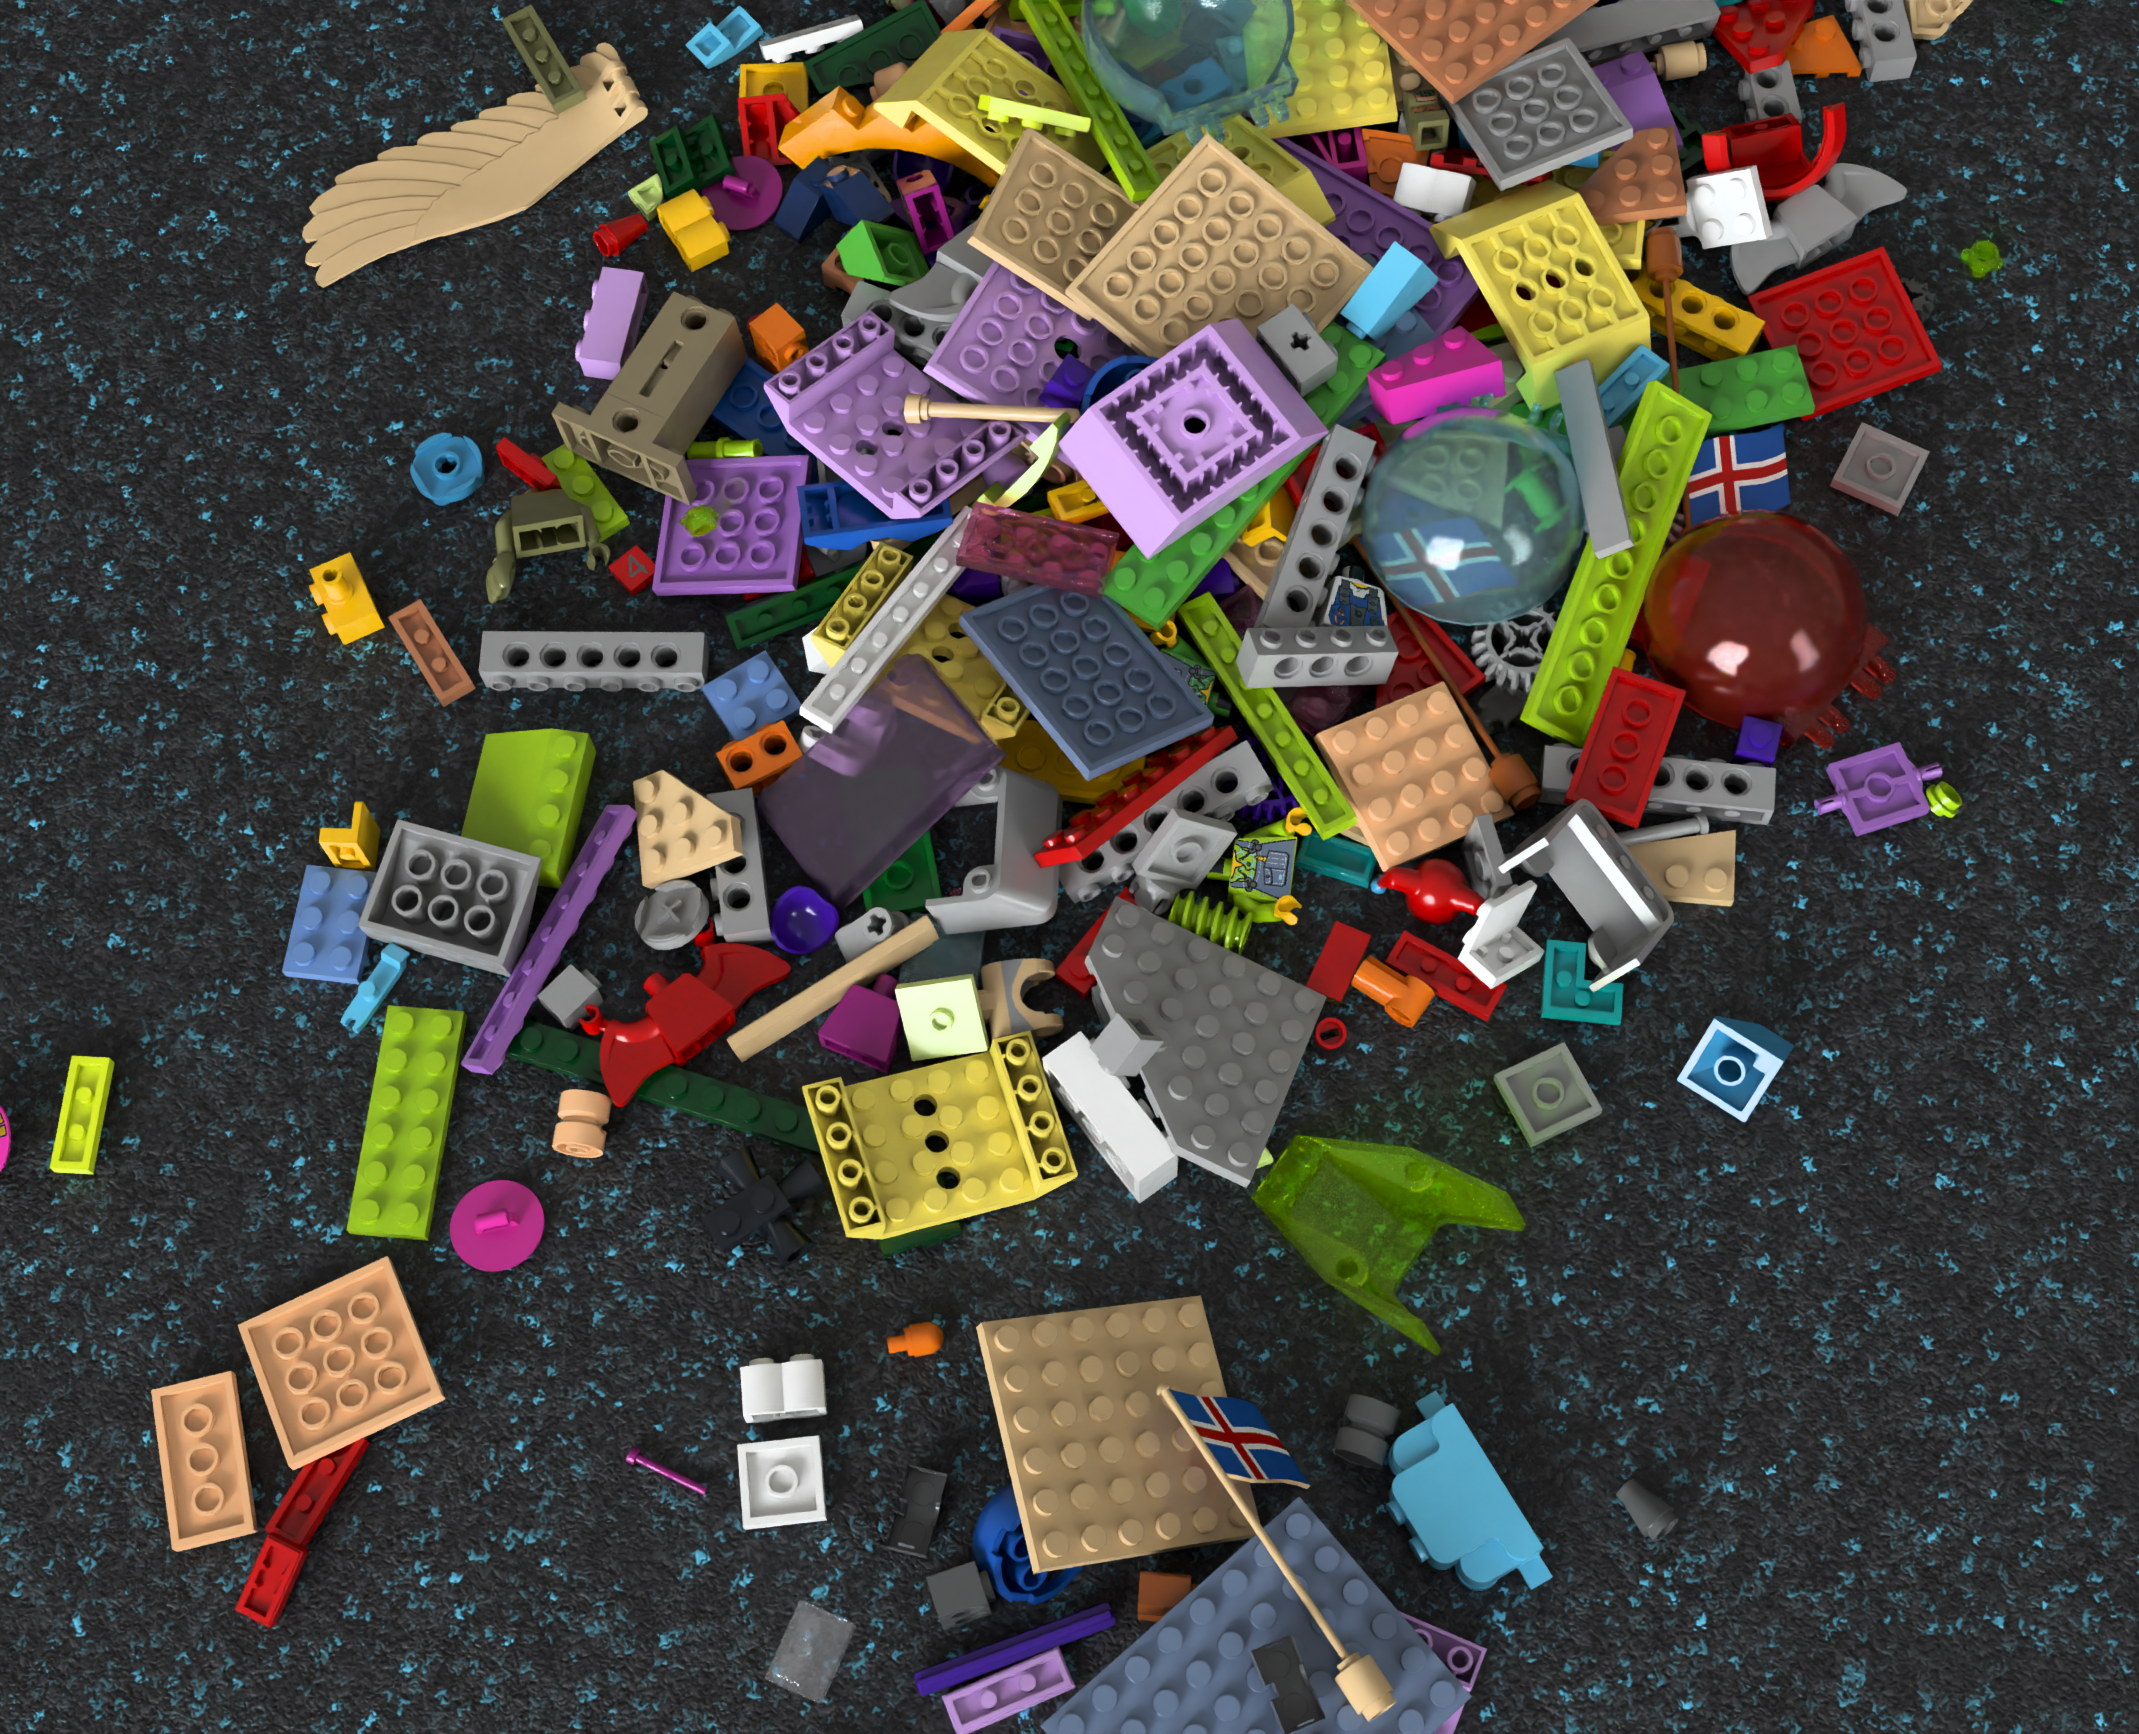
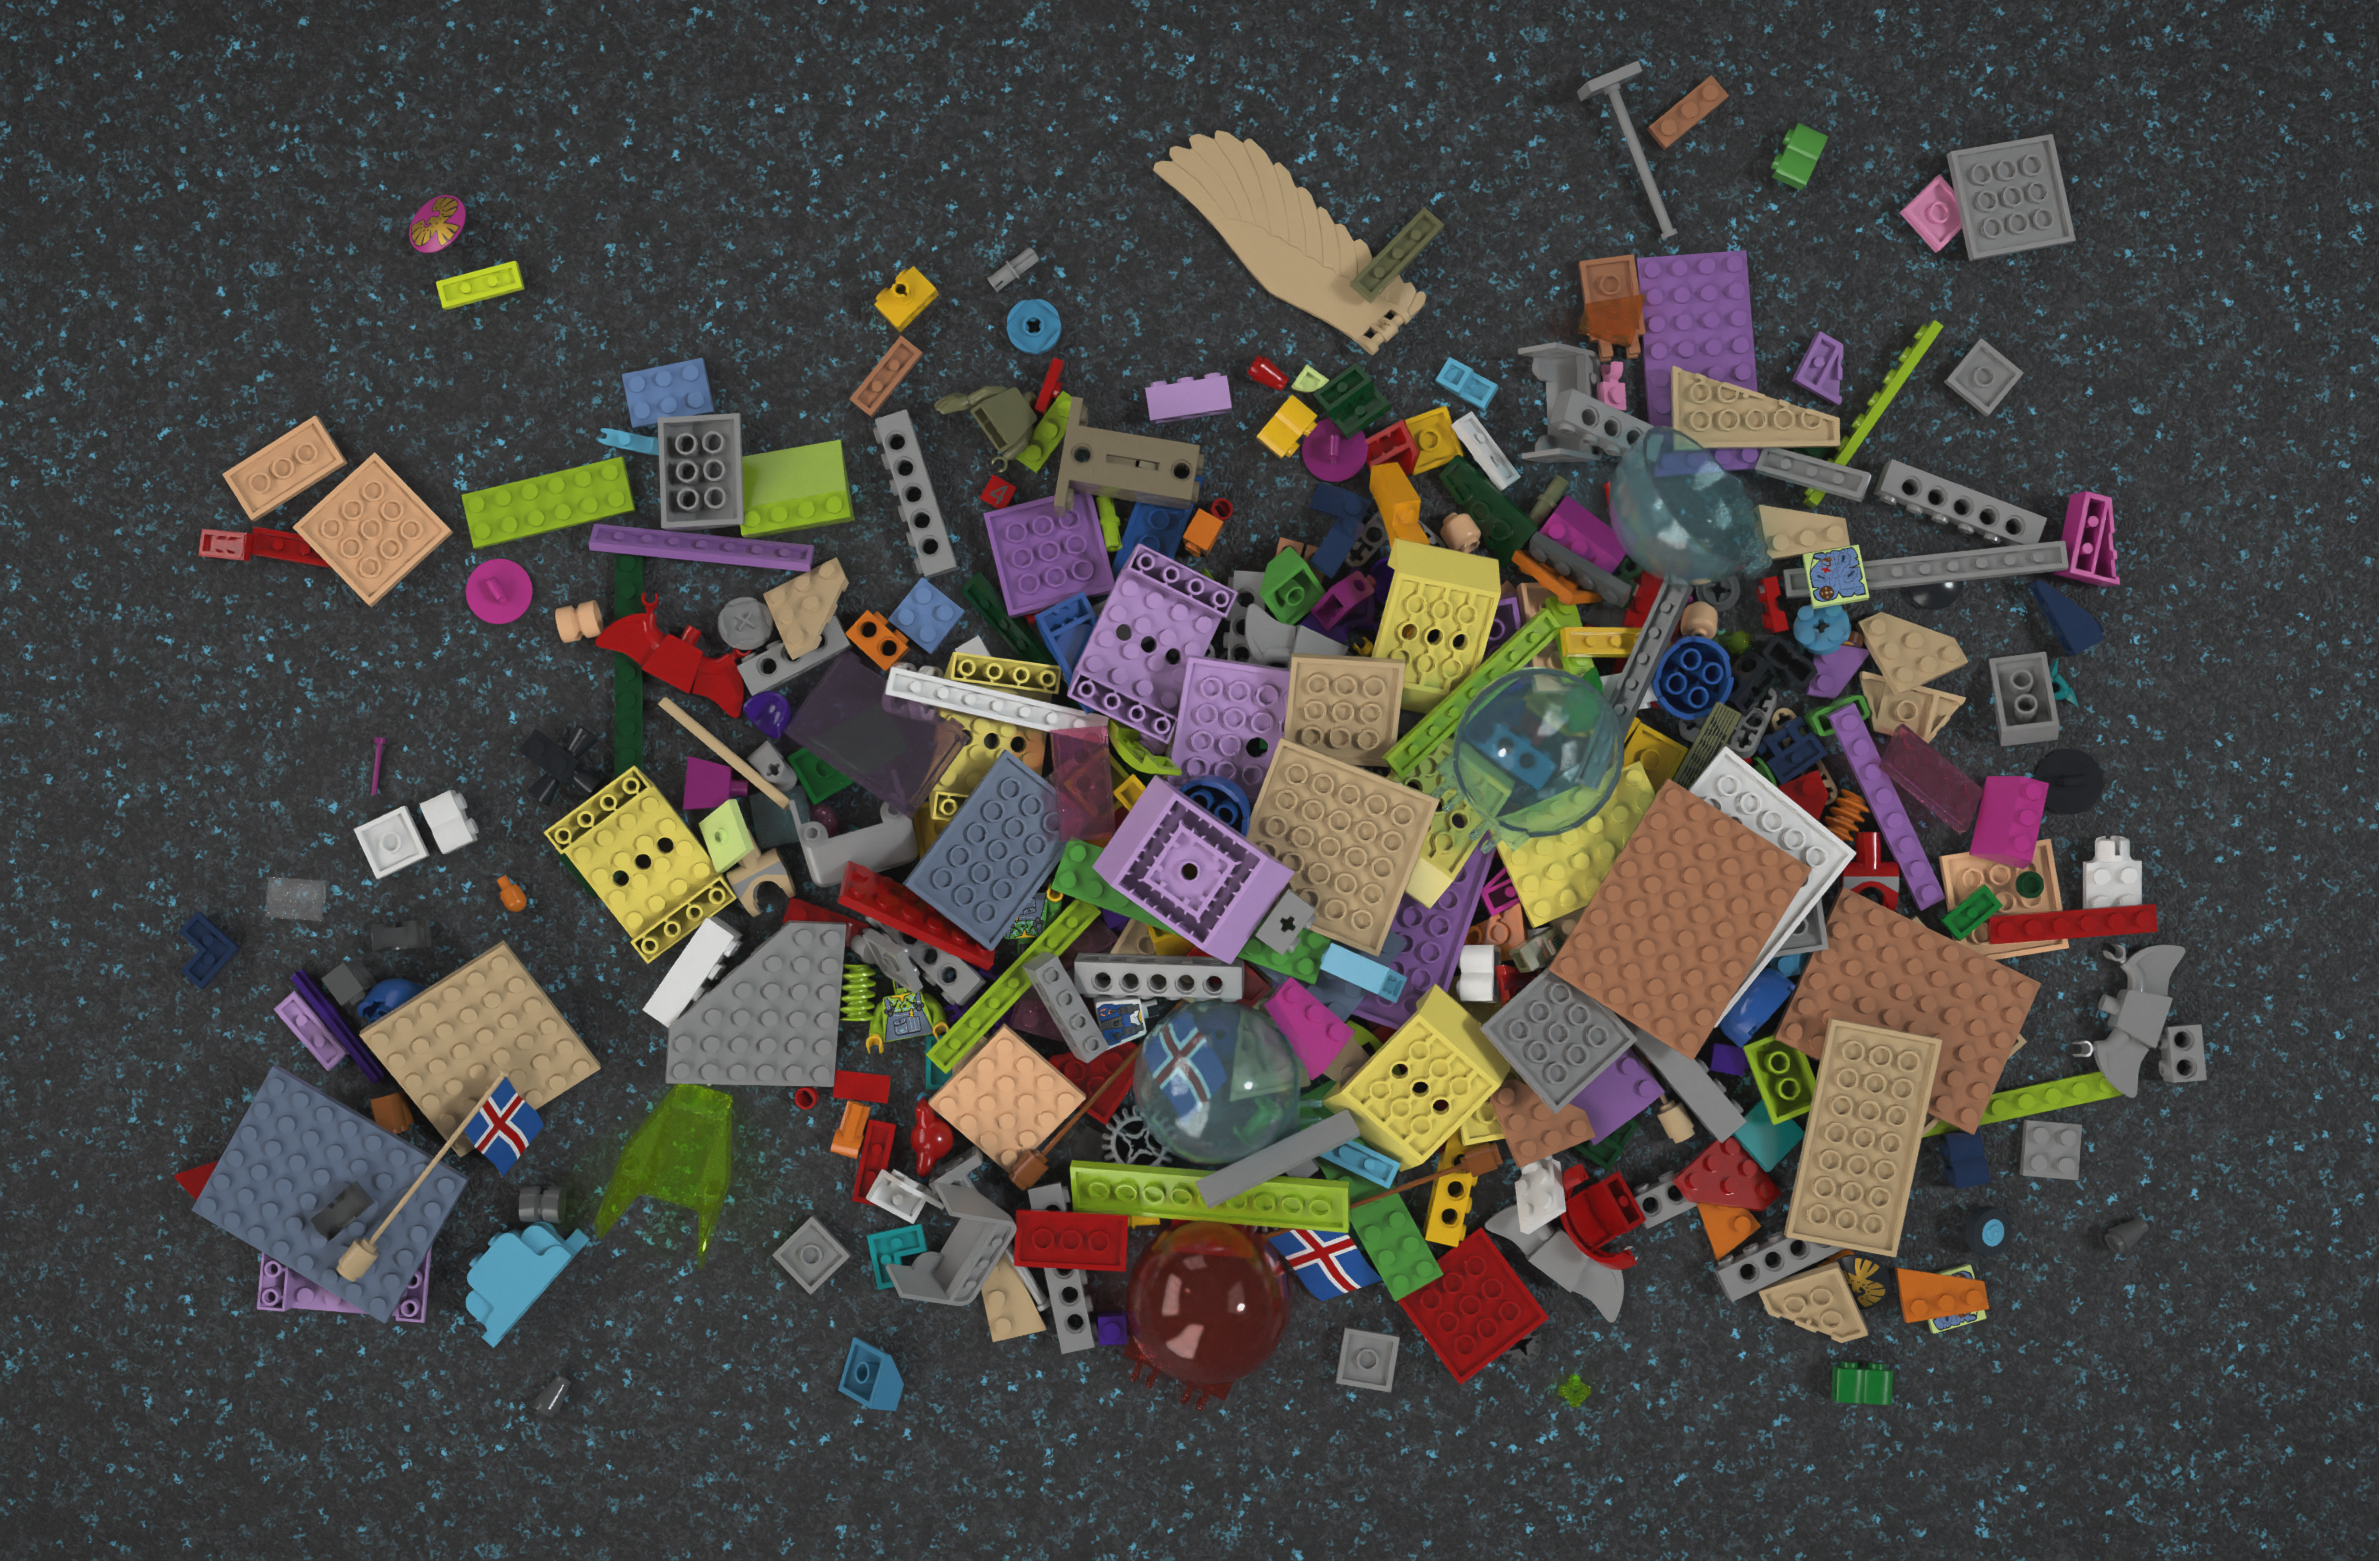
camera: 70 degrees right, 20 degrees up
(356, 846) = (719, 392): yellow panel -> none
(367, 470) = (1013, 269): none -> light grey axle
(568, 996) = (665, 578): light grey brick -> none
(700, 520) = (1038, 530): clear neon green plate -> none
(919, 409) = (1163, 661): tan piece -> none
(1033, 116) = (1429, 660): neon yellow plate -> none
(1067, 384) = (1213, 761): dark purple brick -> none
(1126, 1044) = (726, 972): light grey brick -> none
(1878, 788) = (1110, 1419): medium lavender plate -> none
(1943, 799) = (1115, 1466): lime plate -> none

